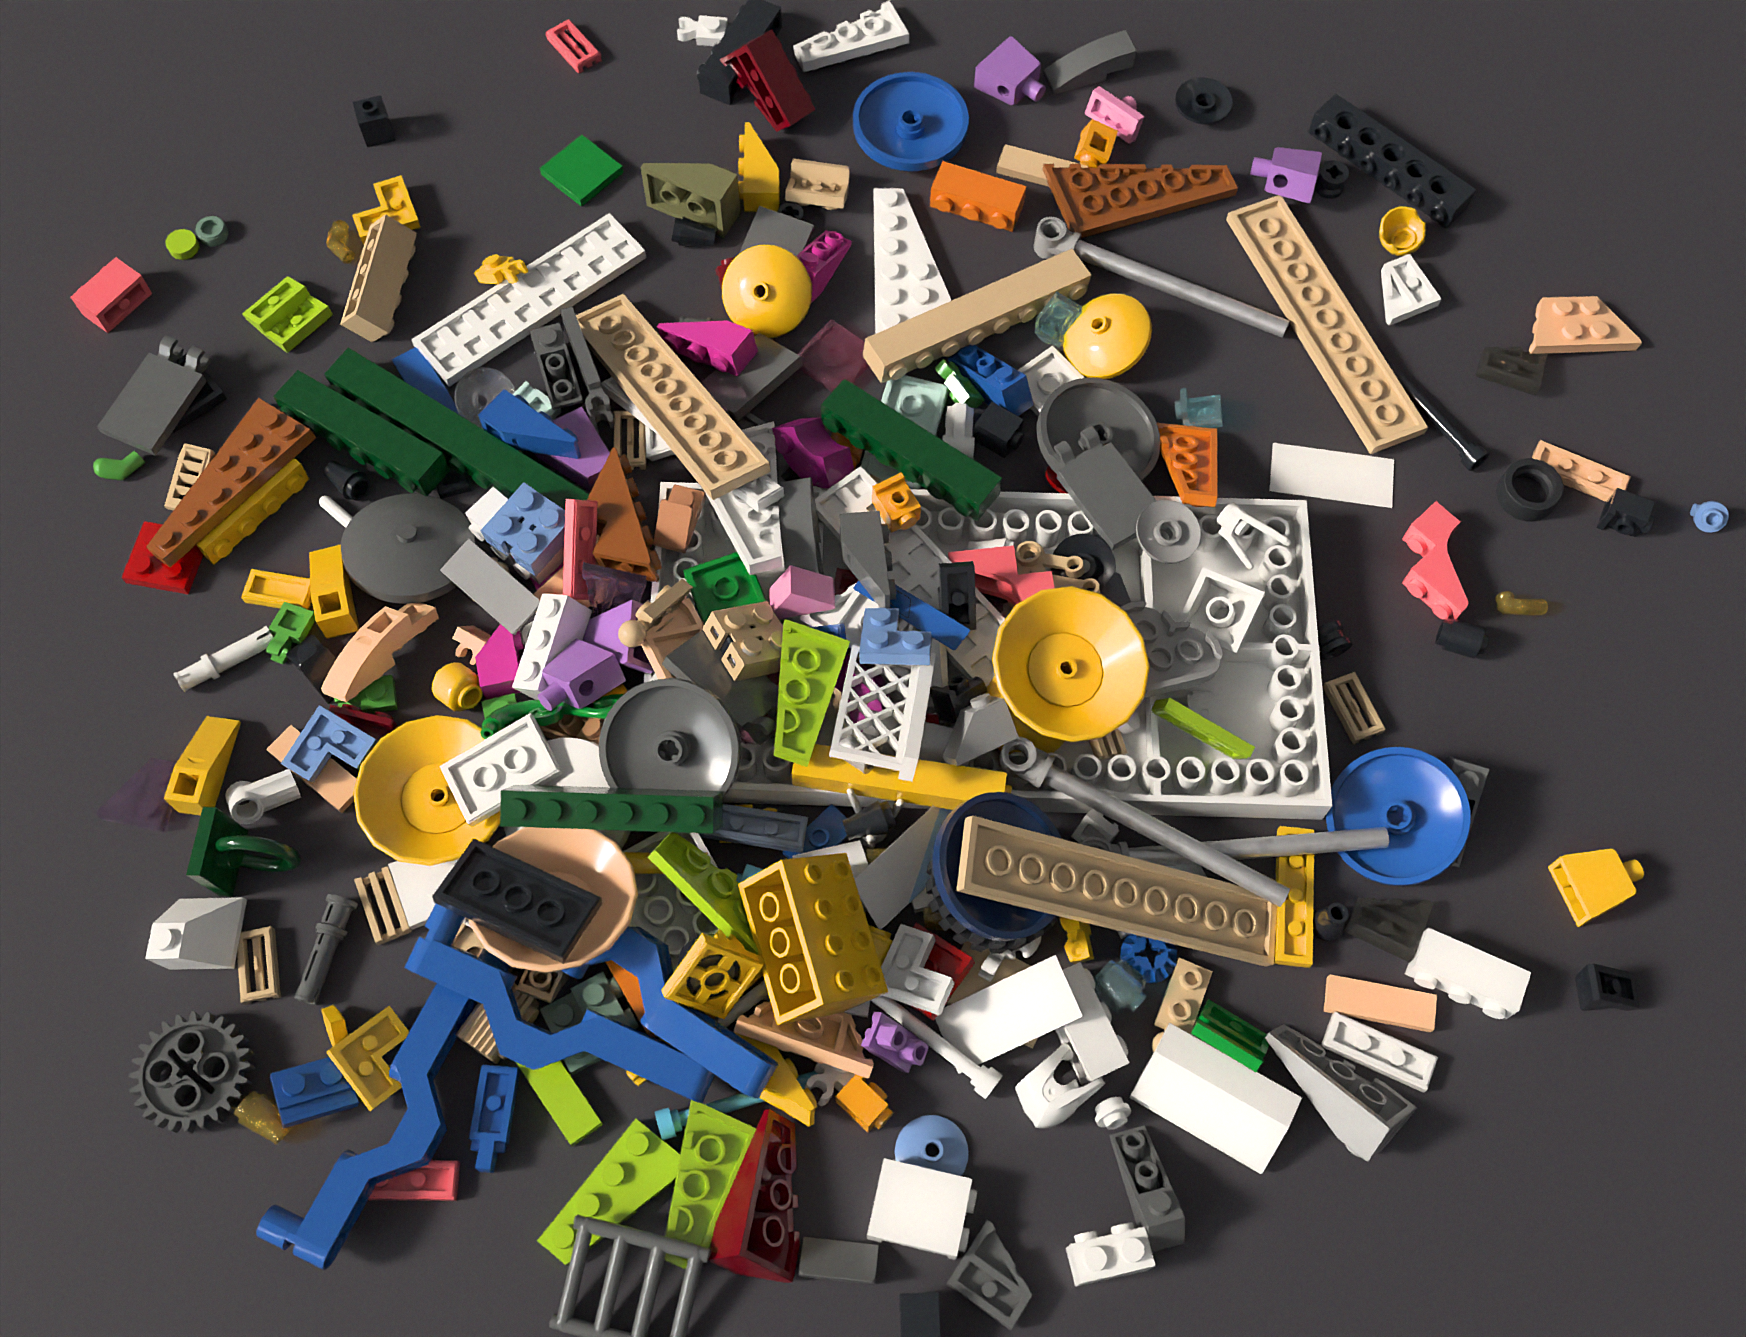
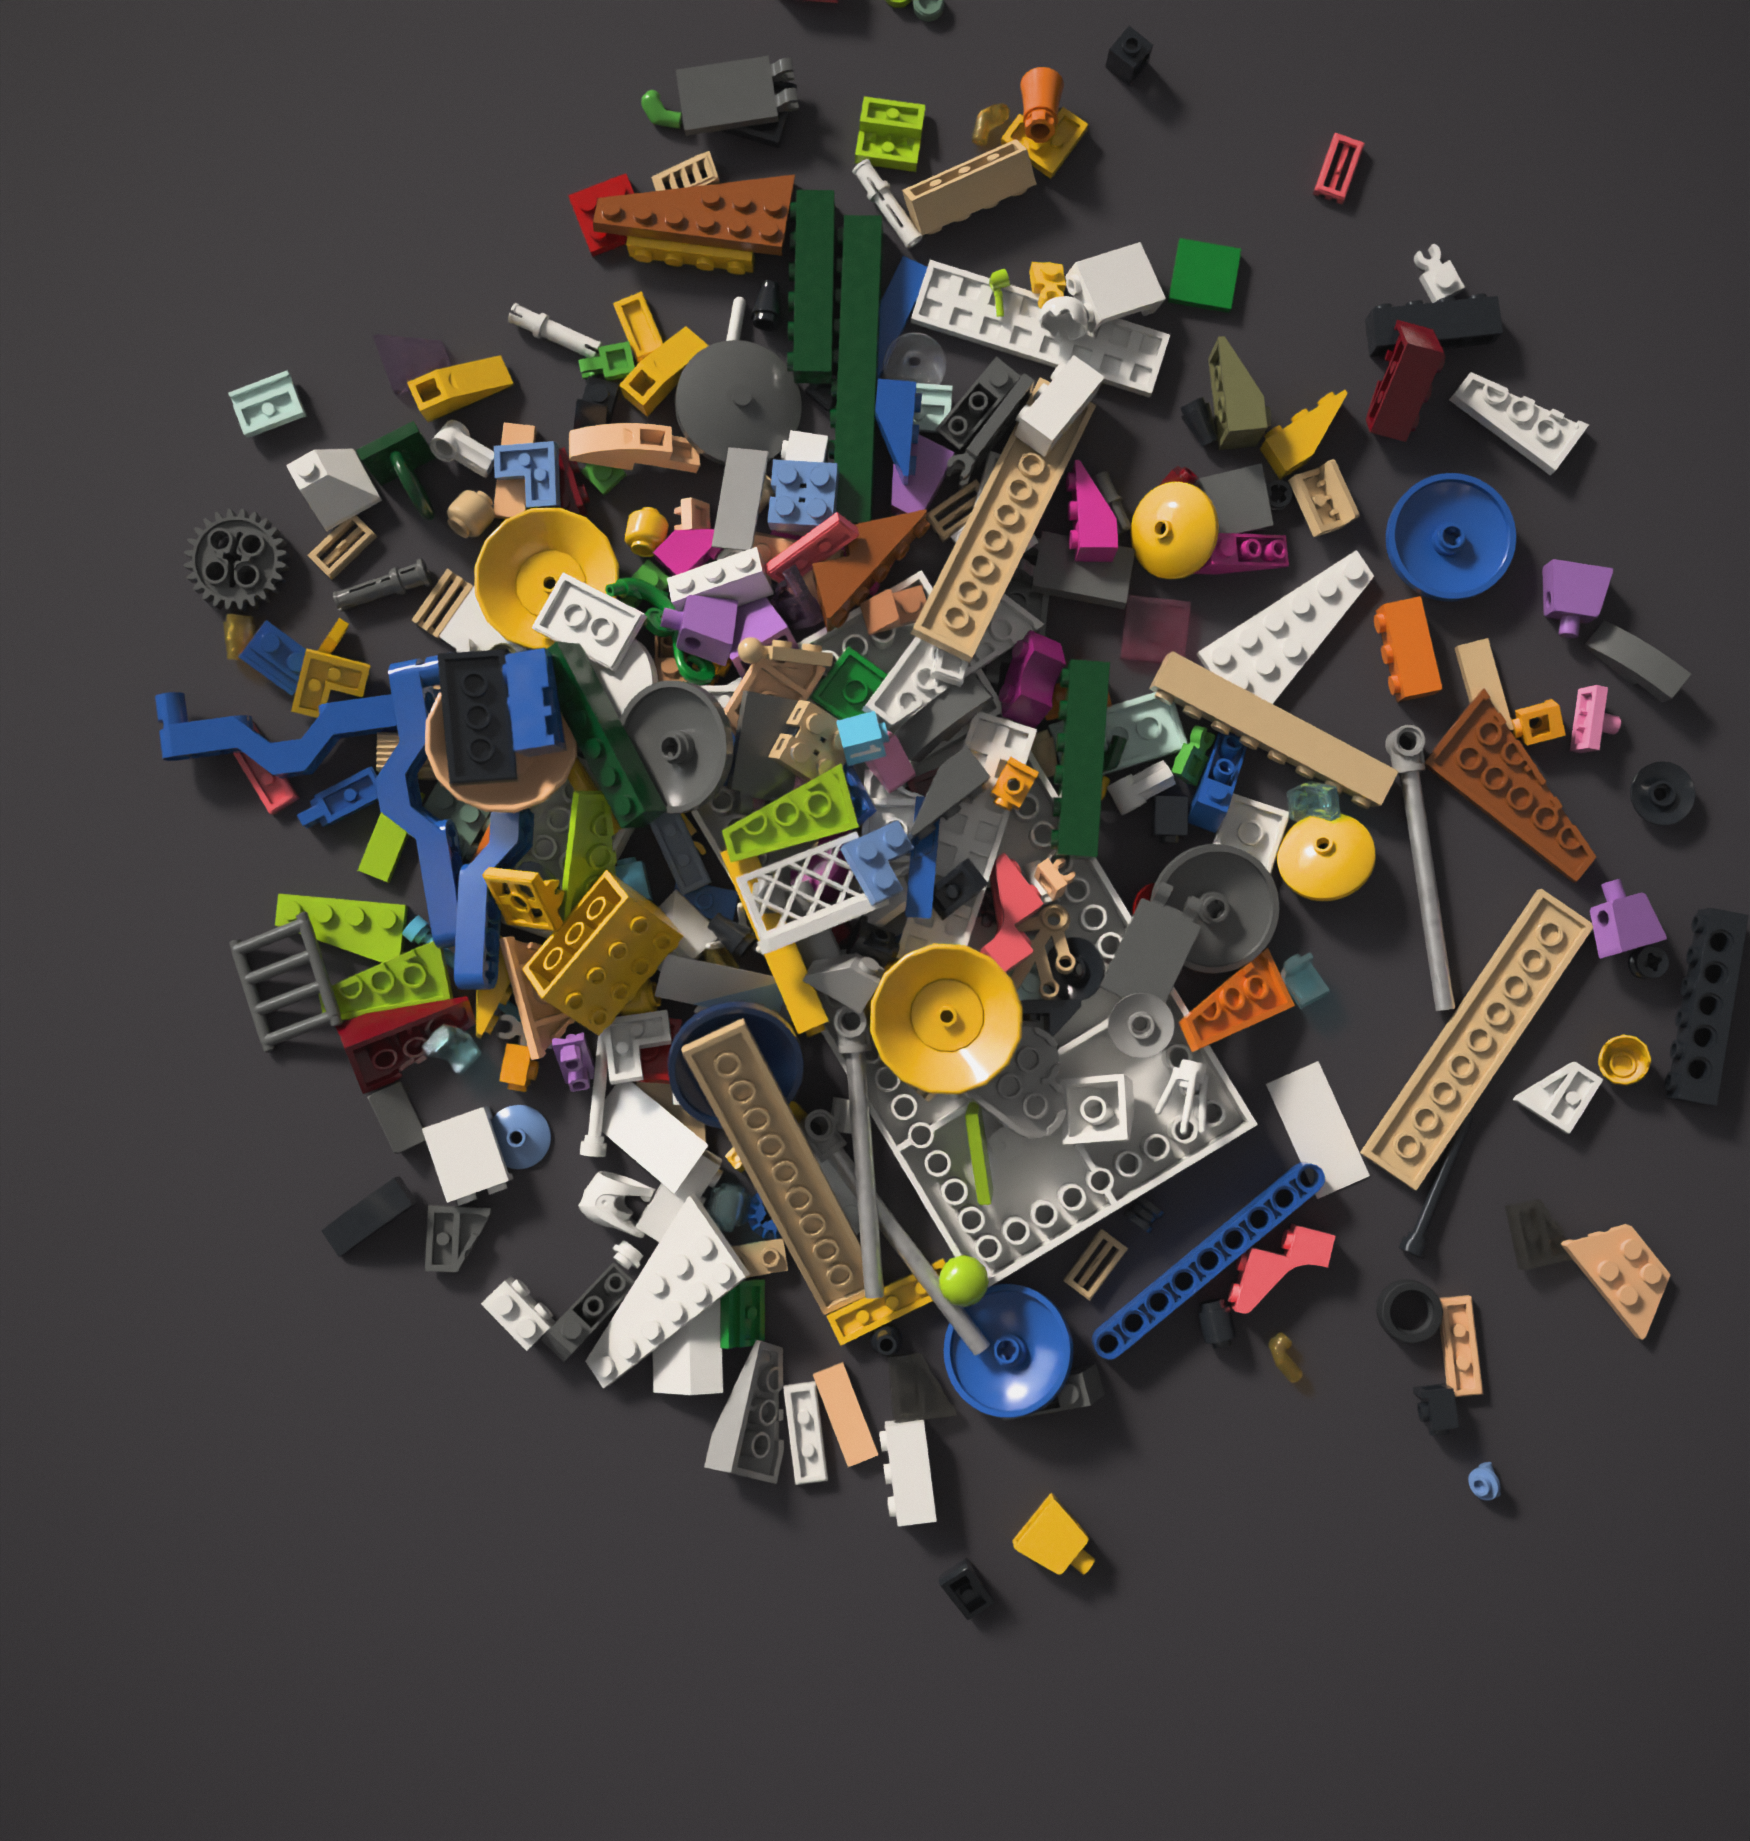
camera: 60 degrees right, 20 degrees up
(75, 950) = (267, 404): none -> light aqua plate
(322, 826) = (470, 513): none -> tan head
(327, 346) = (867, 174): none -> white pin
(354, 191) = (1041, 100): none -> orange plant
(470, 301) = (997, 281): none -> lime hand
(538, 265) = (1064, 315): none -> white hair
(541, 225) = (1115, 285): none -> white panel
(543, 836) = (533, 703): none -> blue wedge
(604, 310) = (1057, 405): none -> white brick
(775, 586) = (862, 738): none -> medium azure brick
(806, 1155) = (454, 1046): none -> clear light blue bracket
(996, 529) = (1050, 878): none -> light nougat tile
(1171, 1068) = (677, 1284): none -> white wing
(1314, 809) = (963, 1281): none -> lime hair
(1400, 627) = (1223, 1257): none -> blue beam

